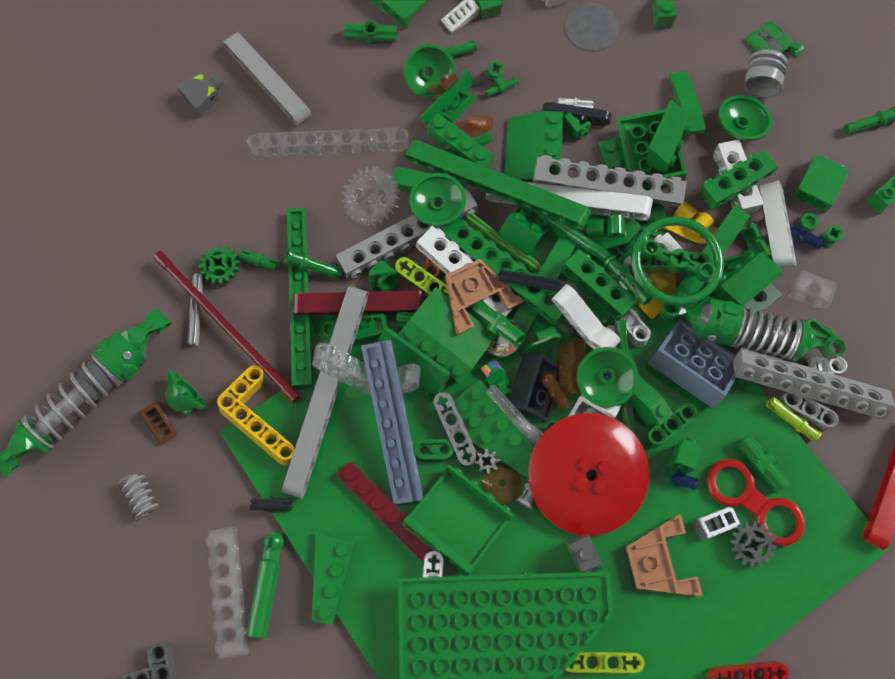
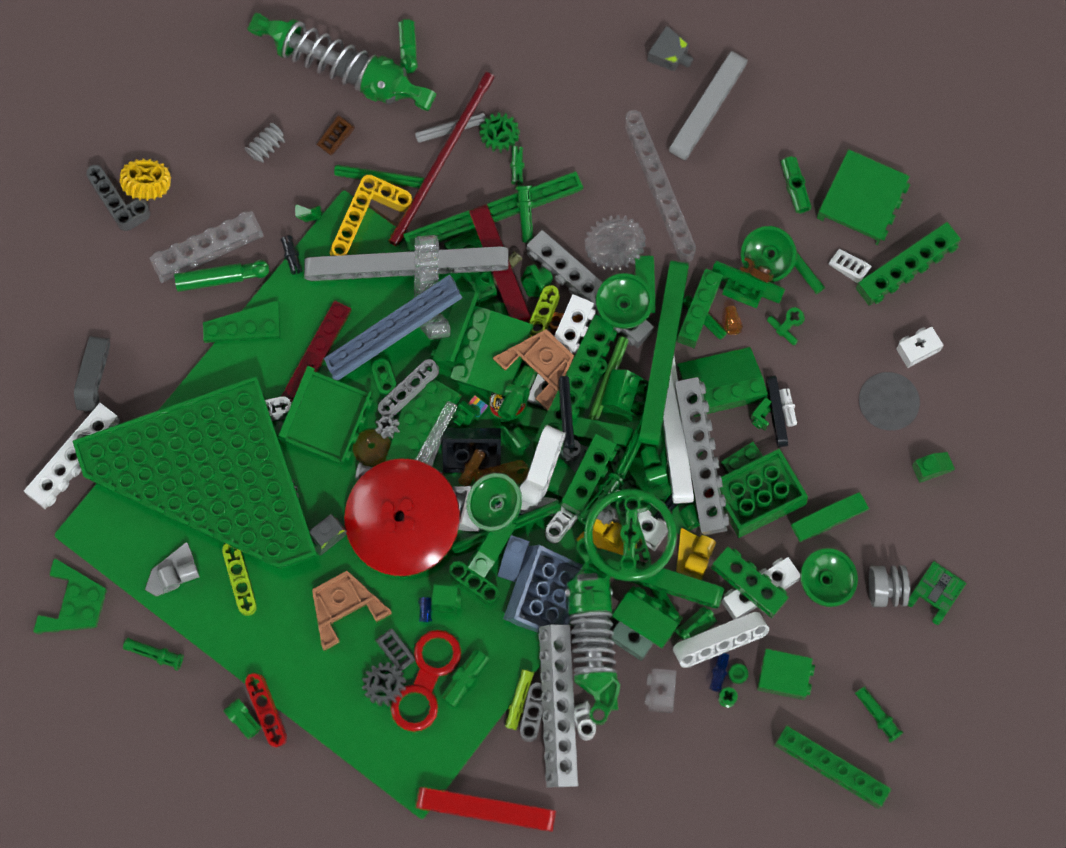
camera: 70 degrees right, 0 degrees up
(91, 323) = (407, 45): none -> green piece
(123, 635) = (145, 179): none -> yellow gear
(181, 395) = (366, 145): green hat -> none
(226, 380) = (392, 178): none -> green axle
(232, 474) = (308, 214): none -> green slope
(658, 379) = (513, 558): none -> sand blue slope
(668, 138) = (765, 497): green slope -> none

